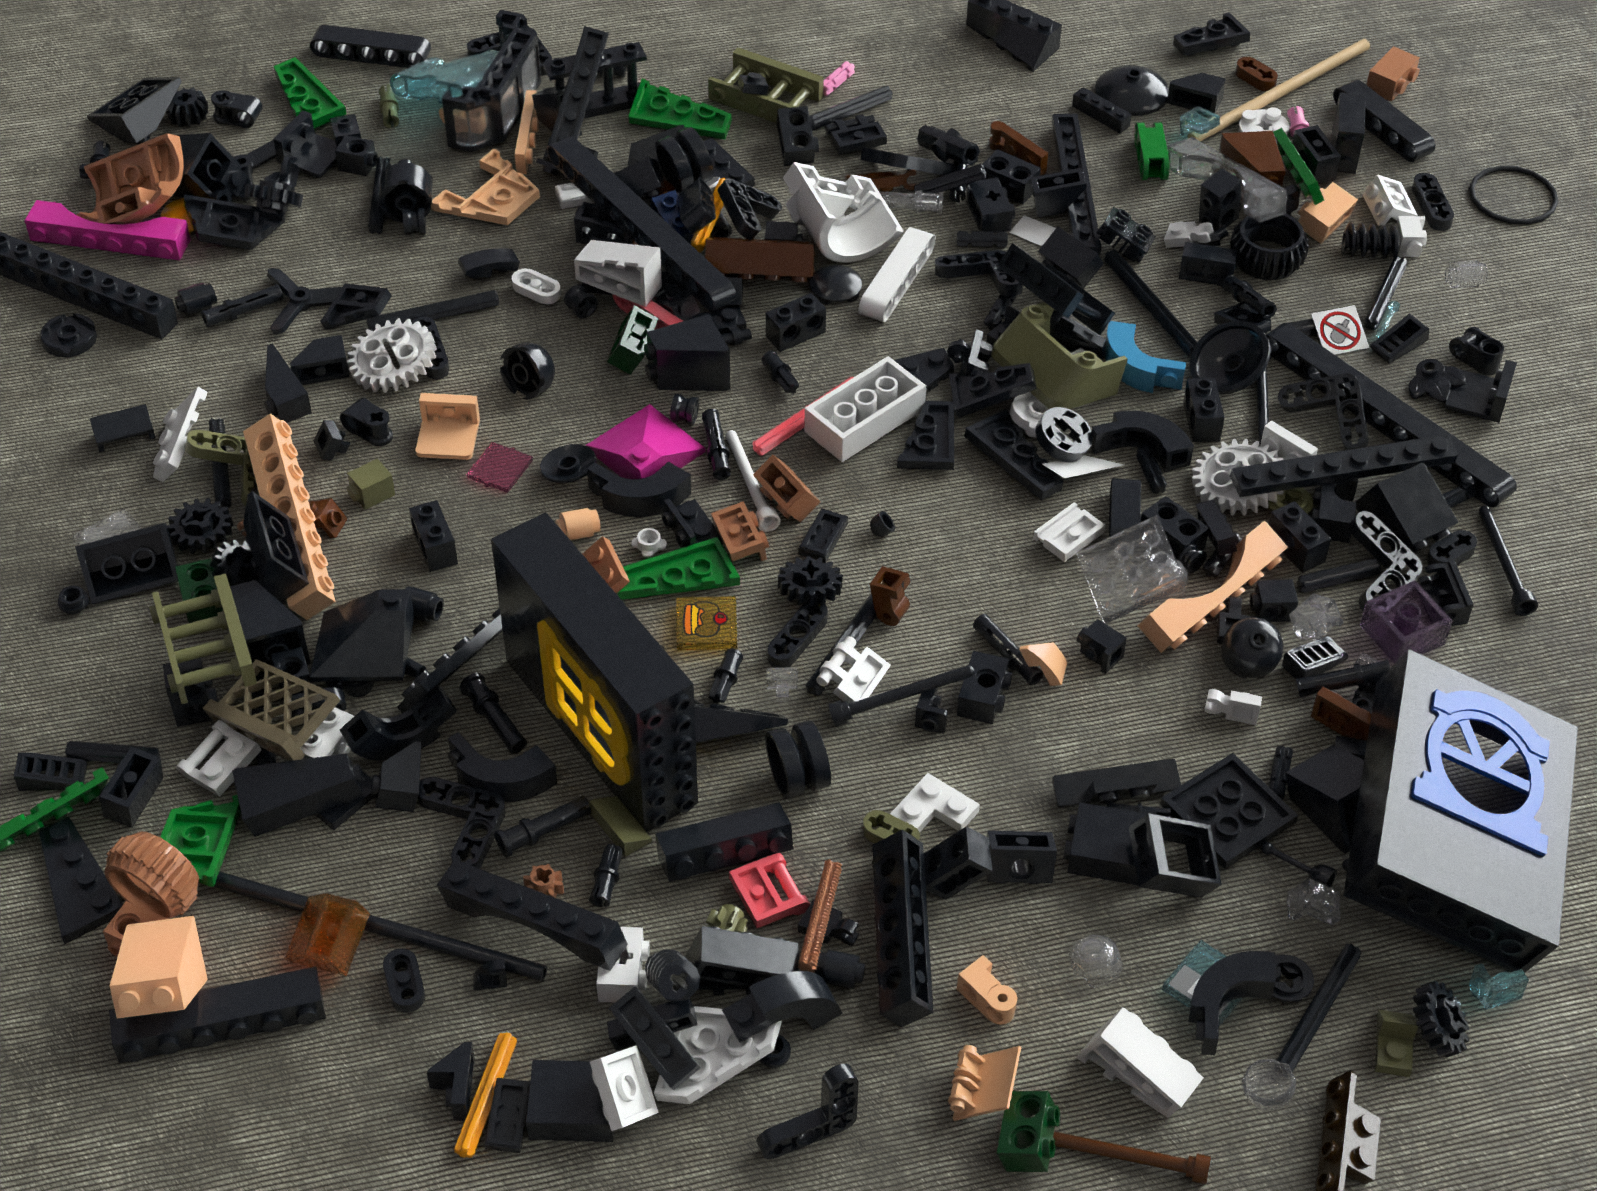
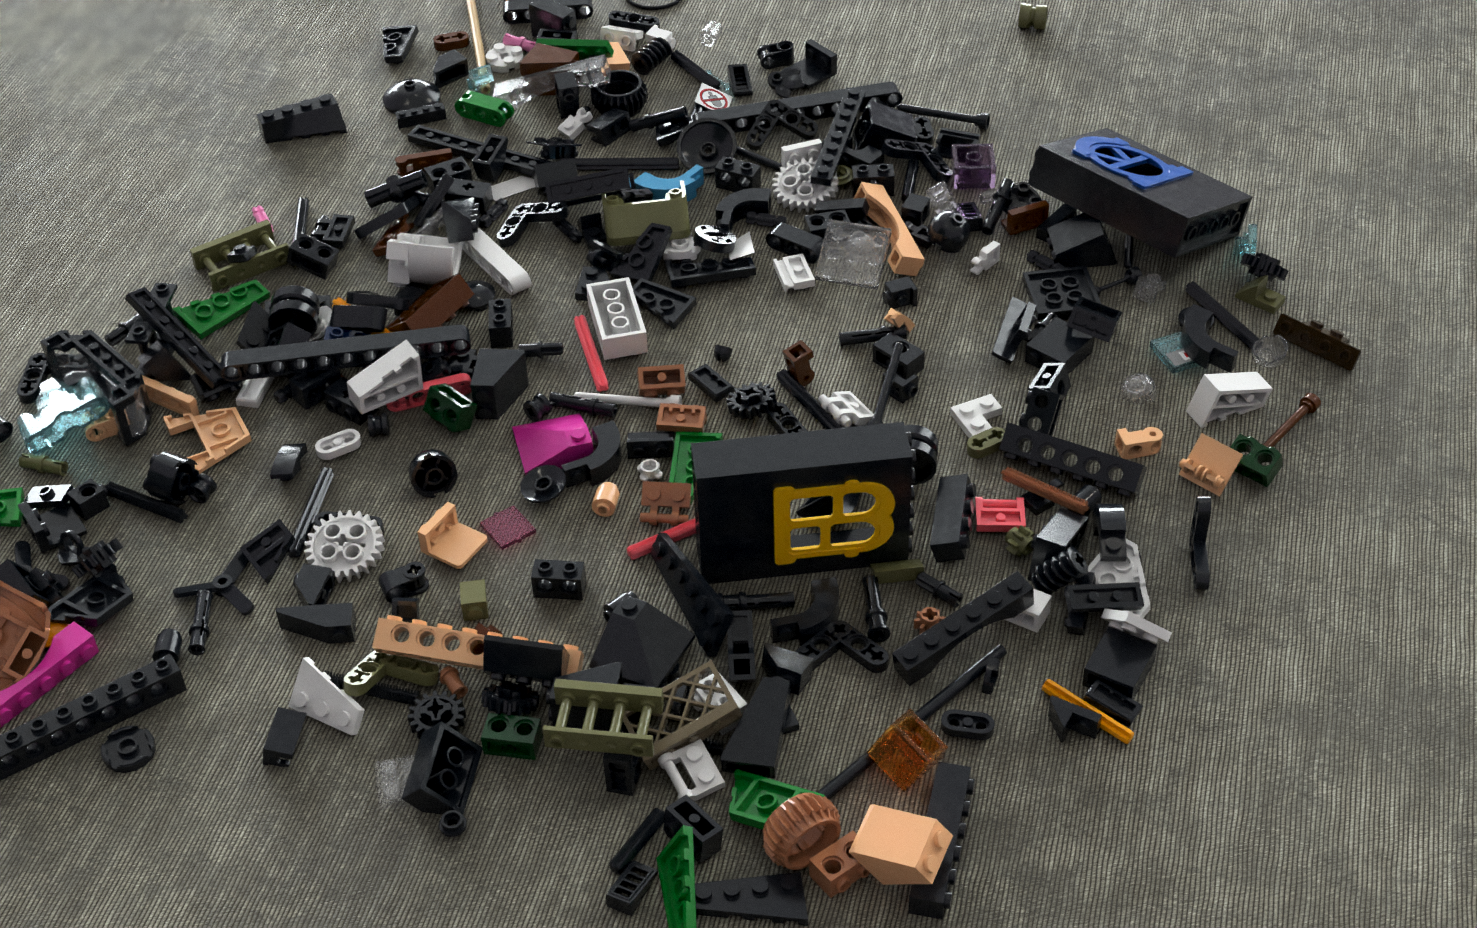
camera: 60 degrees left, 5 degrees down
(922, 209) = (461, 219): none -> black wedge

